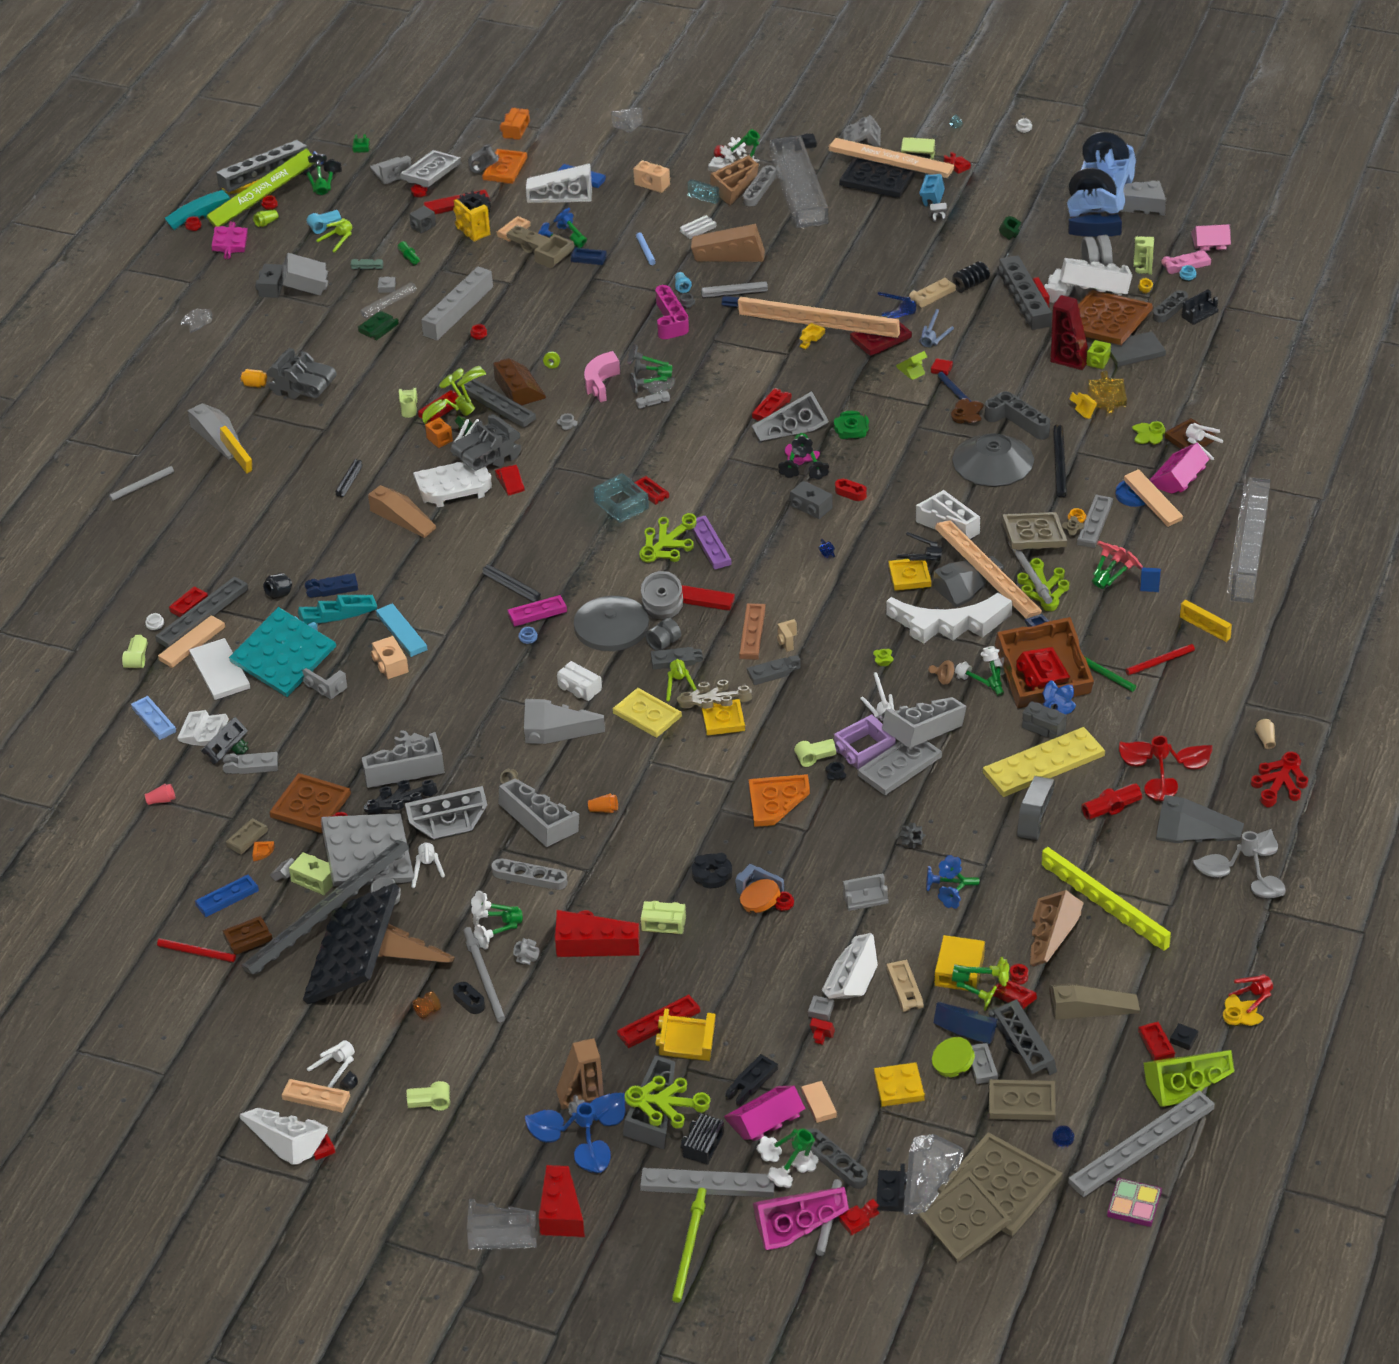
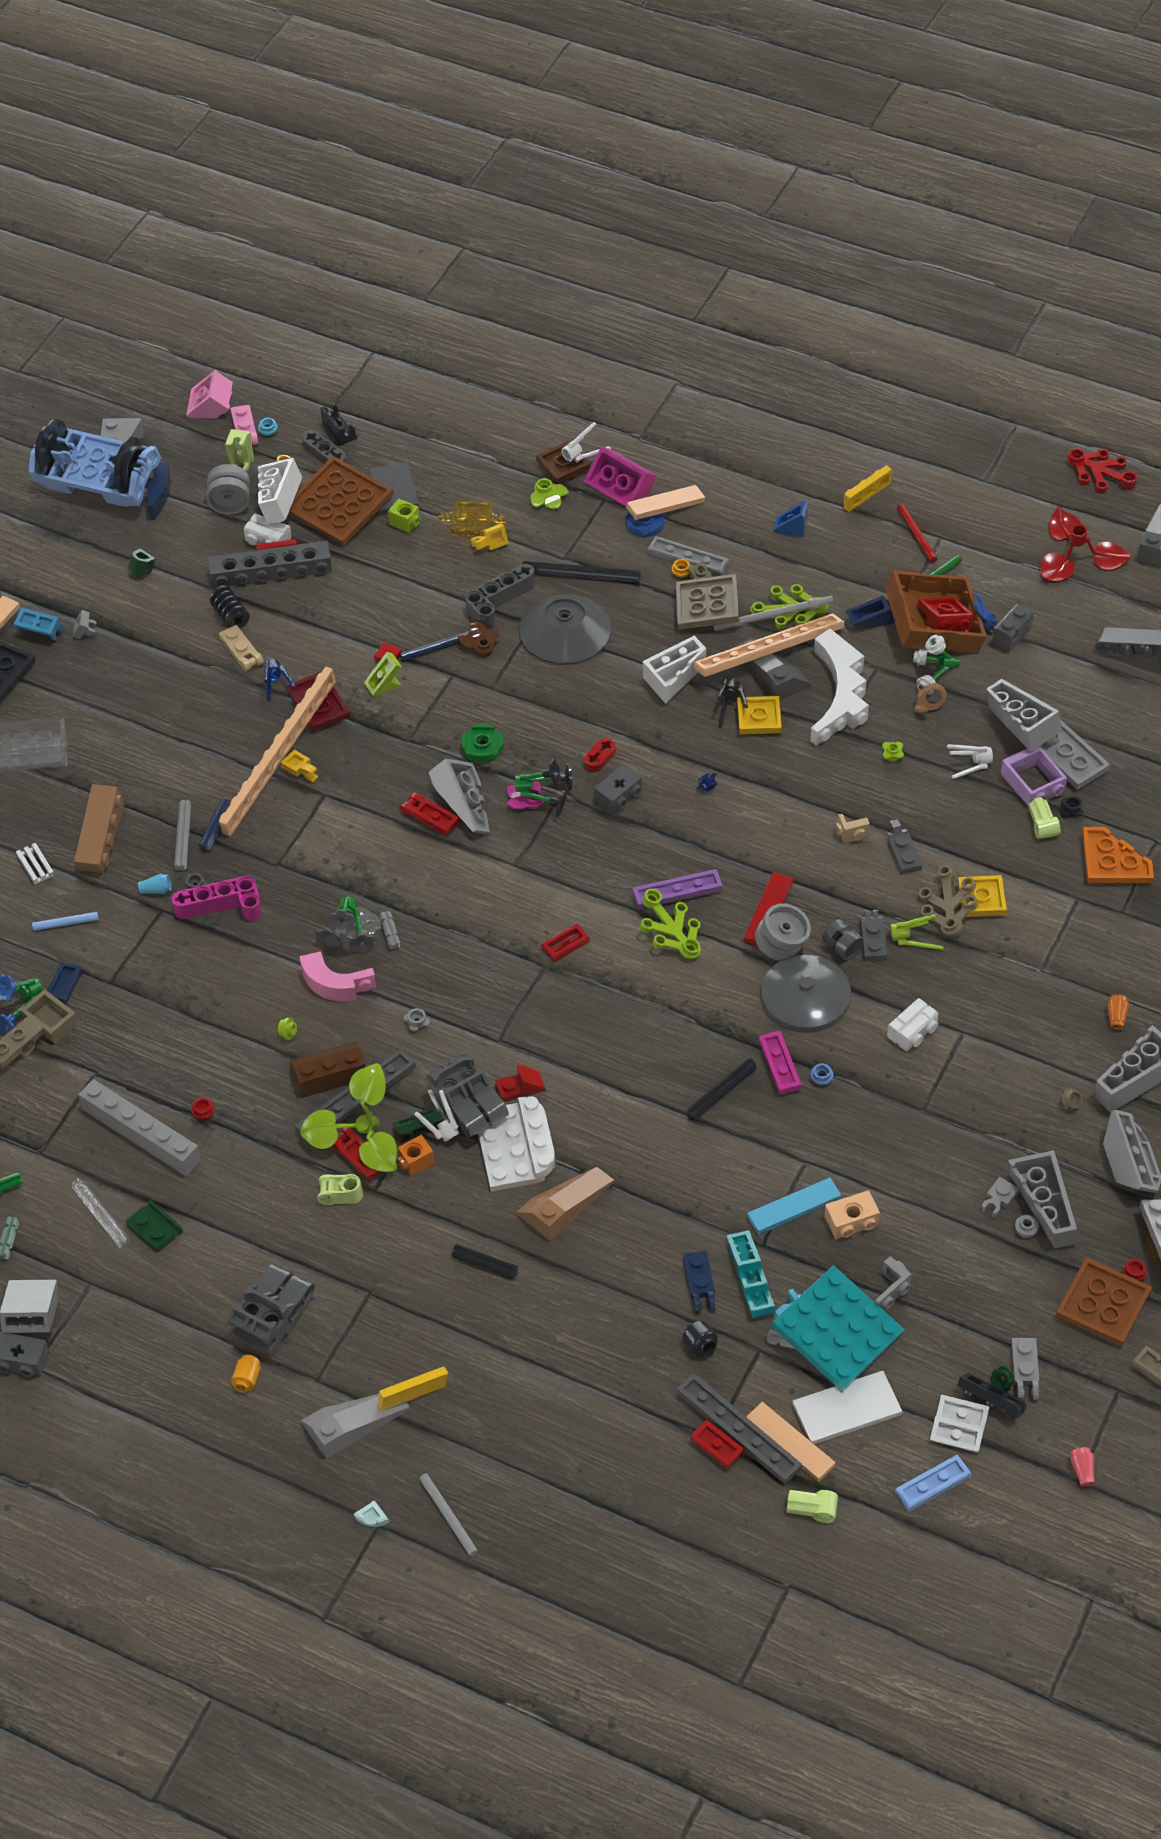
camera: 85 degrees left, 10 degrees up
(143, 449) = (371, 1516): none -> light aqua tile
(154, 621) = (749, 1486): white plate -> none
(197, 319) = (81, 1456): clear plate -> none
(386, 284) = (62, 1215): light grey plate -> none
(396, 801) = (1104, 1209): black plant -> none
(554, 723) = (992, 1055): light grey wedge -> none
(622, 511) = (577, 953): clear light blue window -> none
(647, 712) = (963, 967): light yellow tile -> none
(752, 631) = (834, 863): nougat tile -> none
(929, 336) = (332, 657): sand blue plant -> none
(1044, 761) = (1066, 640): light yellow plate -> none
(1068, 334) = (391, 524): dark red wedge -> none
(1102, 577) = (792, 557): plant -> none
(1111, 801) = (1131, 592): red piece -> none
(1249, 540) = (755, 433): clear brick -> none
(1266, 732) = (1038, 468): tan cone -> none

